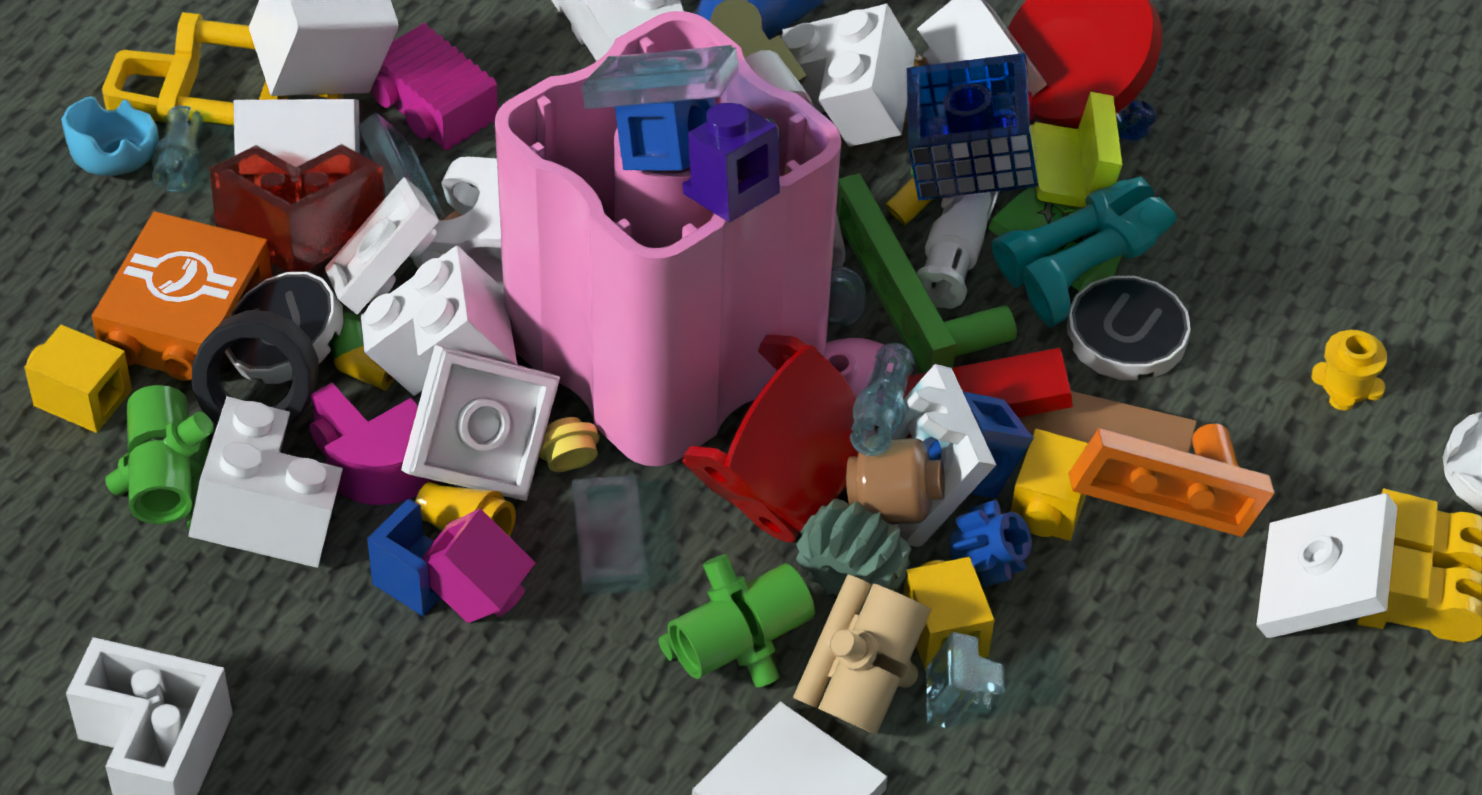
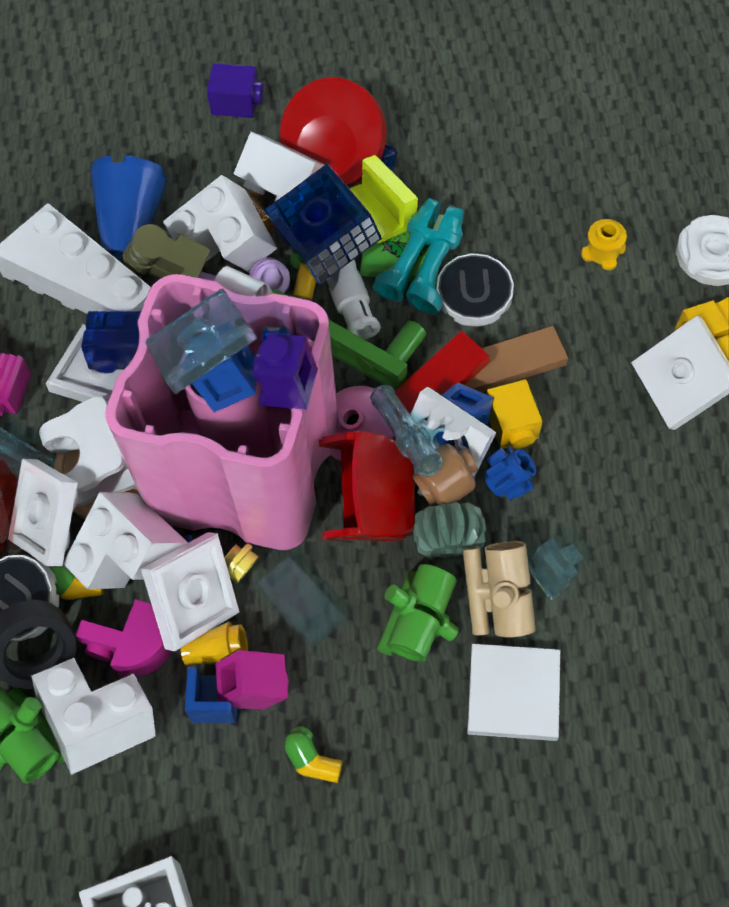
camera: 30 degrees left, 15 degrees up
(470, 700) = (306, 759): none -> arm
(874, 162) = (271, 272): none -> lavender tile
(955, 602) = (517, 522): yellow brick -> none
(1185, 486) = (594, 369): orange piece -> none

